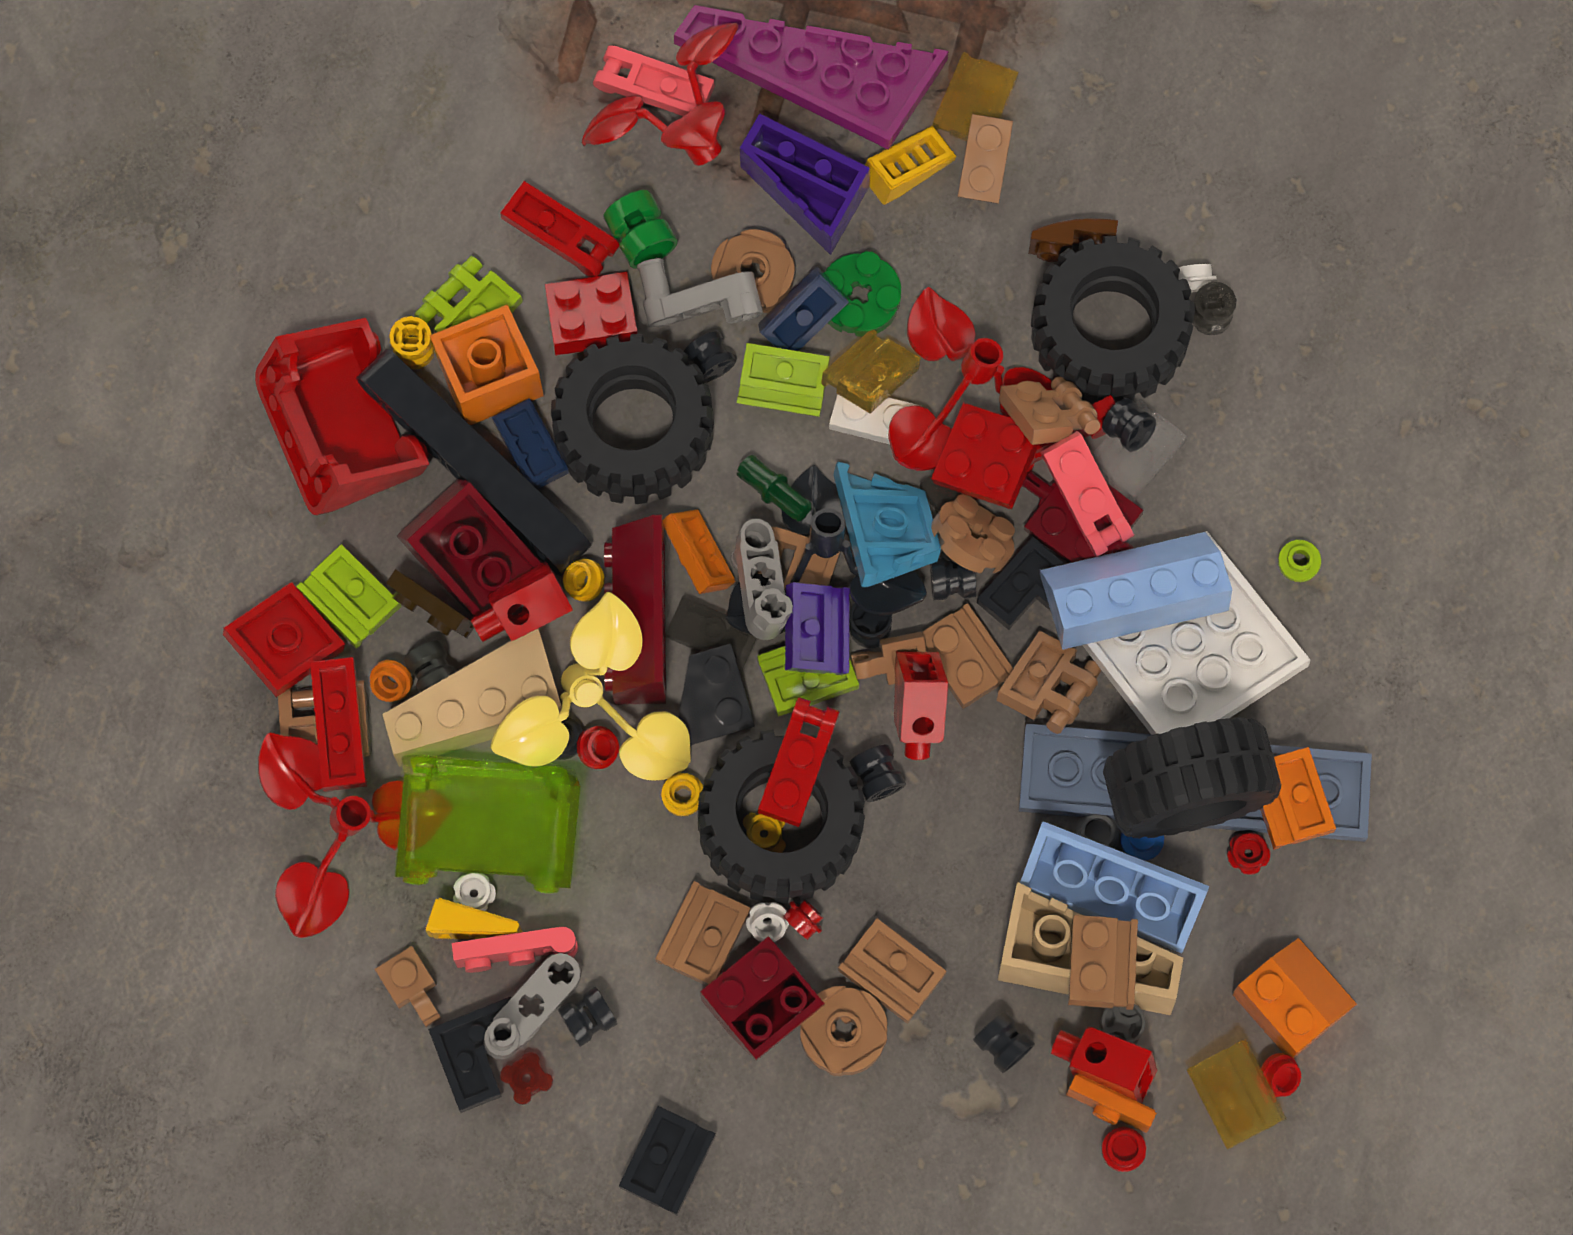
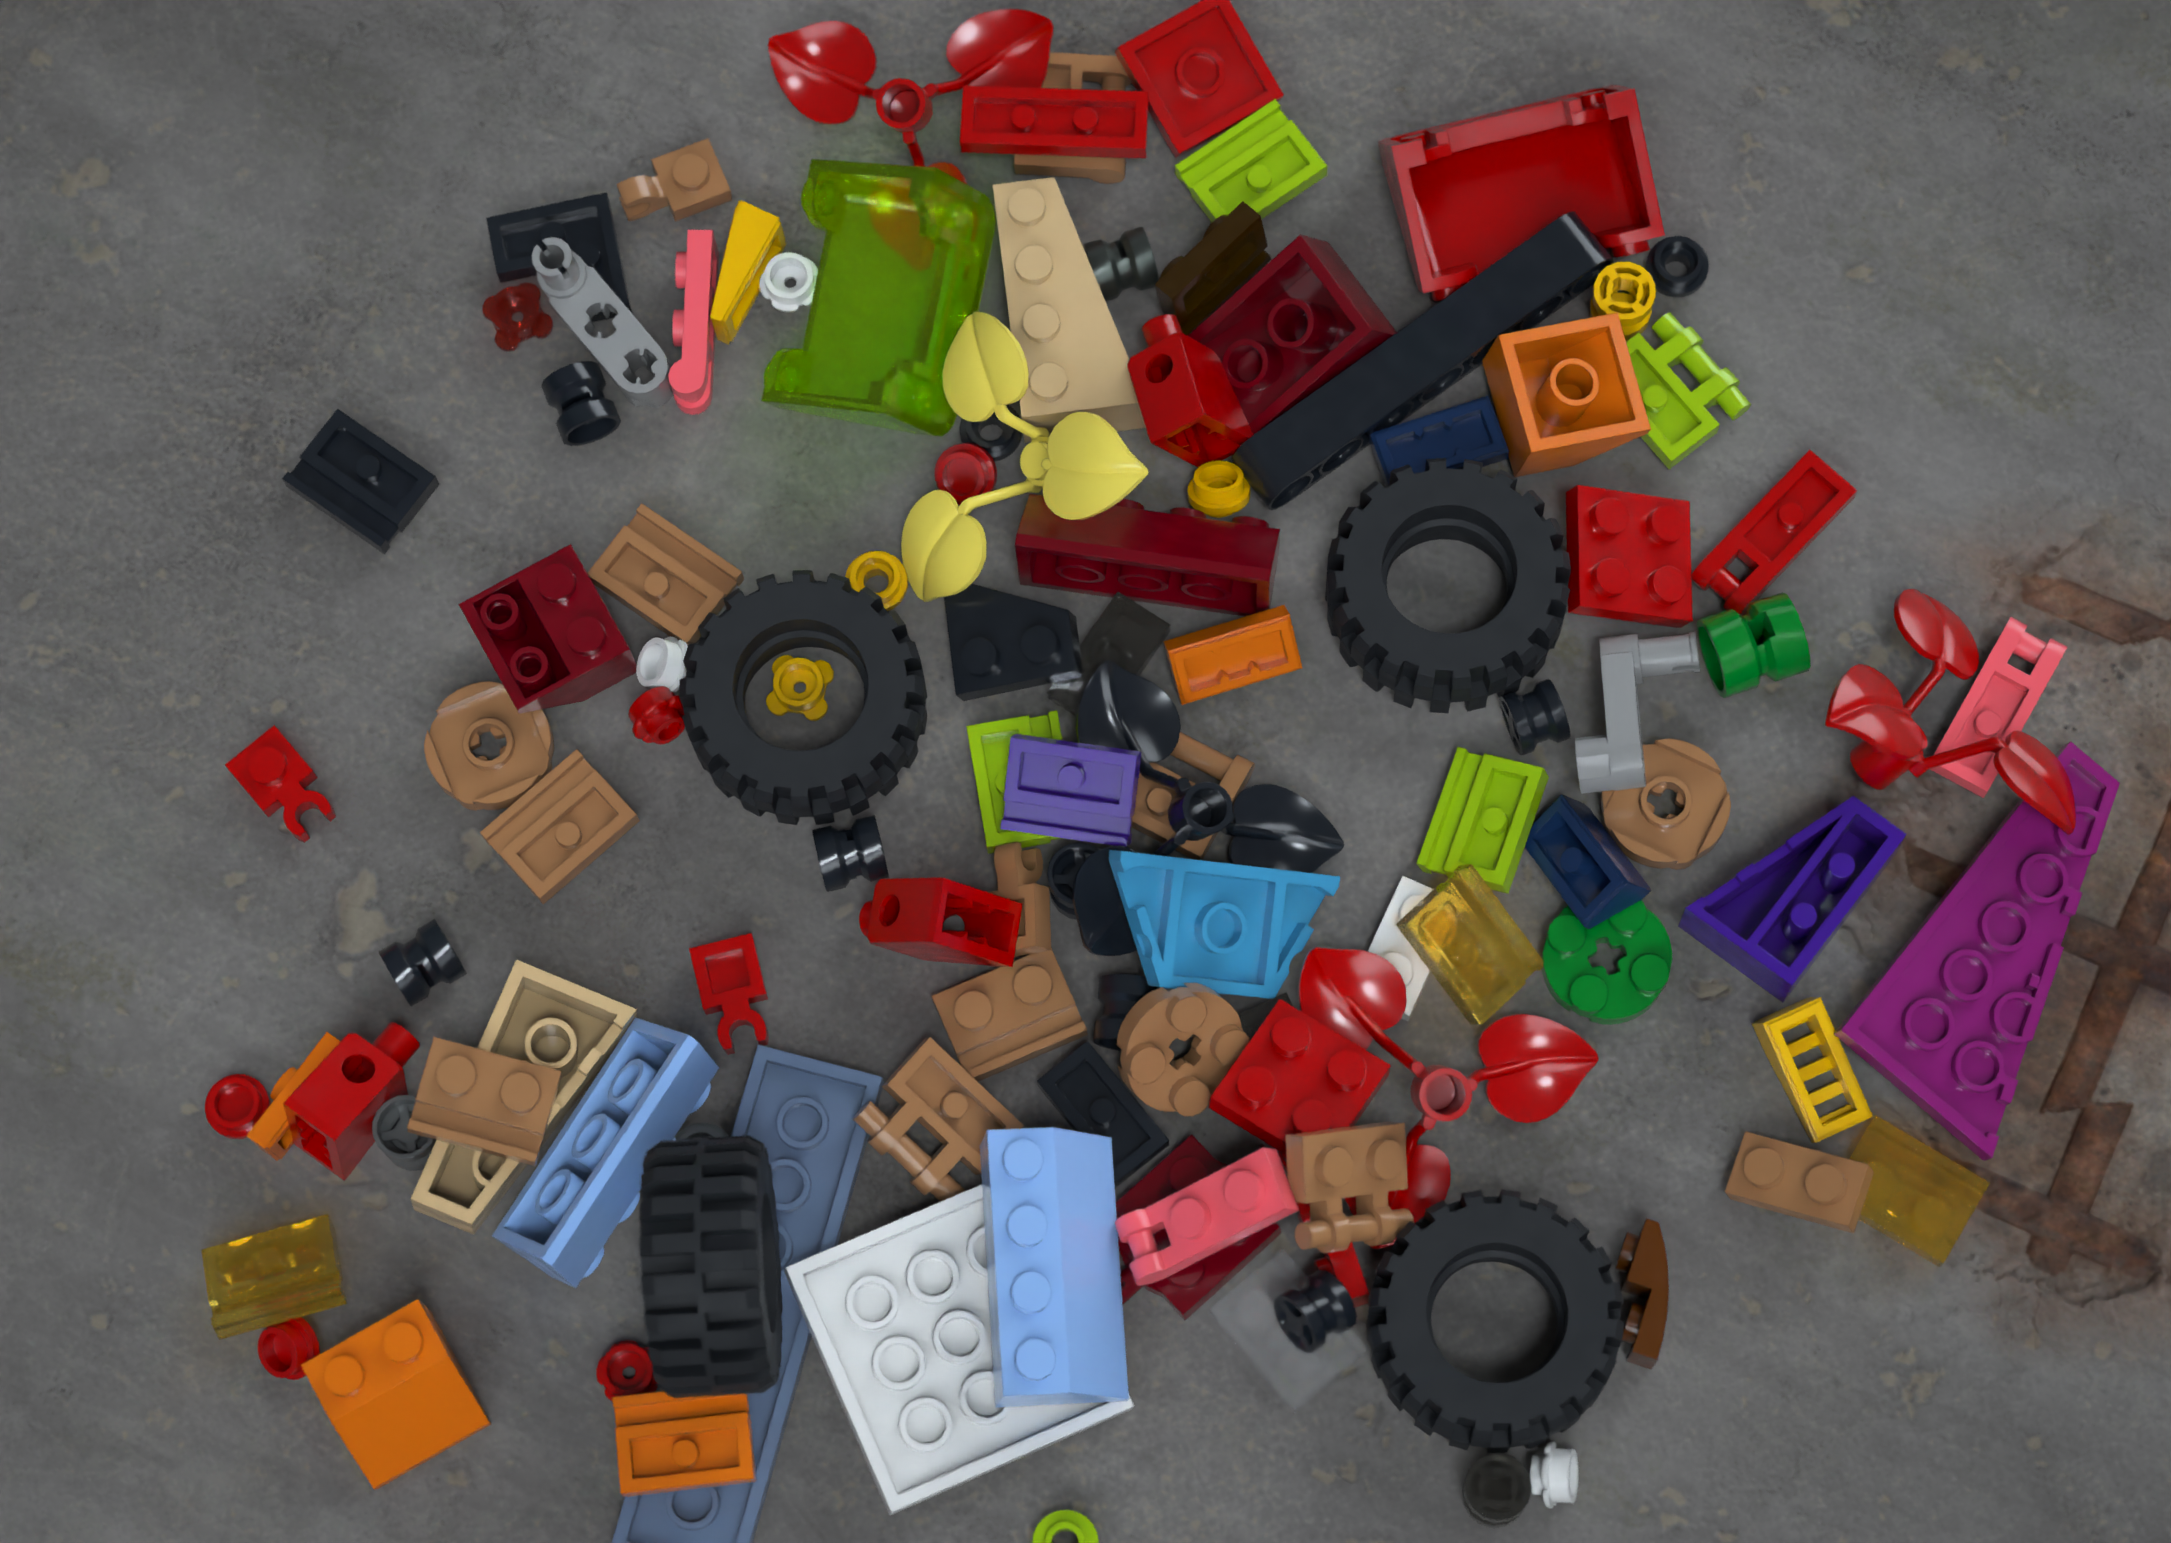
camera: 105 degrees right, 0 degrees up
(380, 303) = (1678, 250): none -> black plate
(386, 689) = (1114, 208): orange plate -> none
(759, 552) = (1189, 733): light grey beam -> none
(773, 488) = (1310, 776): dark green axle -> none
(798, 764) = (857, 713): red plate -> none
(888, 1175) = (276, 778): none -> red plate
(978, 837) = (729, 982): none -> red plate

